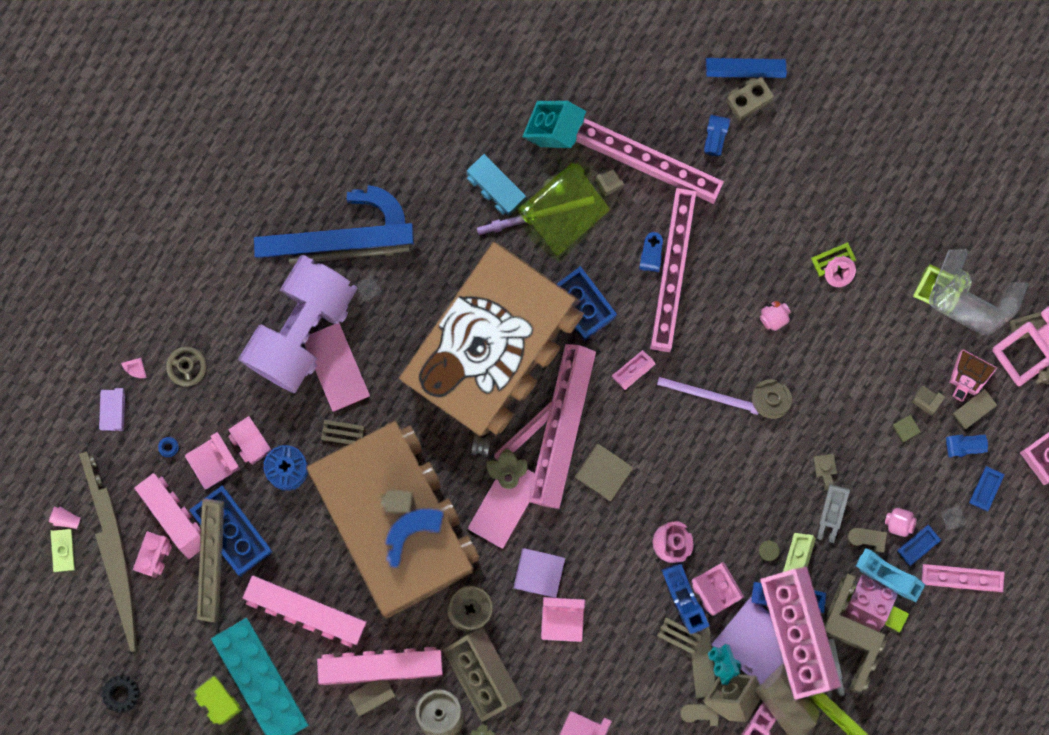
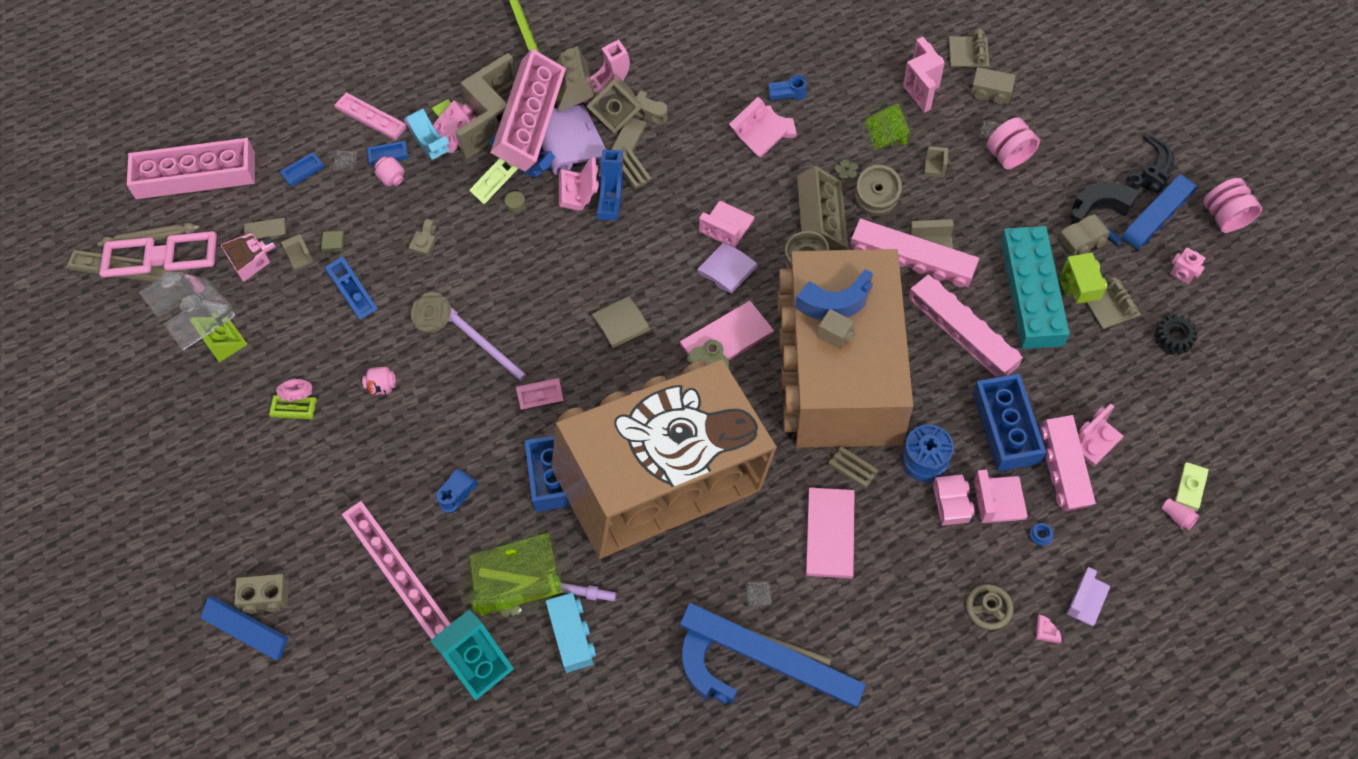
camera: 145 degrees left, 20 degrees down
(112, 549) = (1138, 468): dark tan slope -> none
(180, 701) = (1114, 306): none -> dark tan hinge
(210, 560) = (1041, 401): dark tan tile -> none
(318, 295) = (880, 557): lavender cylinder -> none
(562, 426) = (650, 356): bright pink brick -> none
(609, 182) = (454, 577): dark tan panel -> none
(673, 270) = (445, 459): bright pink brick -> none
(673, 542) = (594, 235): bright pink cylinder -> none
(716, 131) = (315, 578): blue piece -> none
(725, 665) = (606, 128): teal hips -> none
(833, 511) = (440, 201): light grey hinge -> none
(858, 387) = (350, 288): none -> blue slope
(867, 537) = (424, 172): dark tan leg -> none
(960, 445) = (296, 206): blue piece -> none

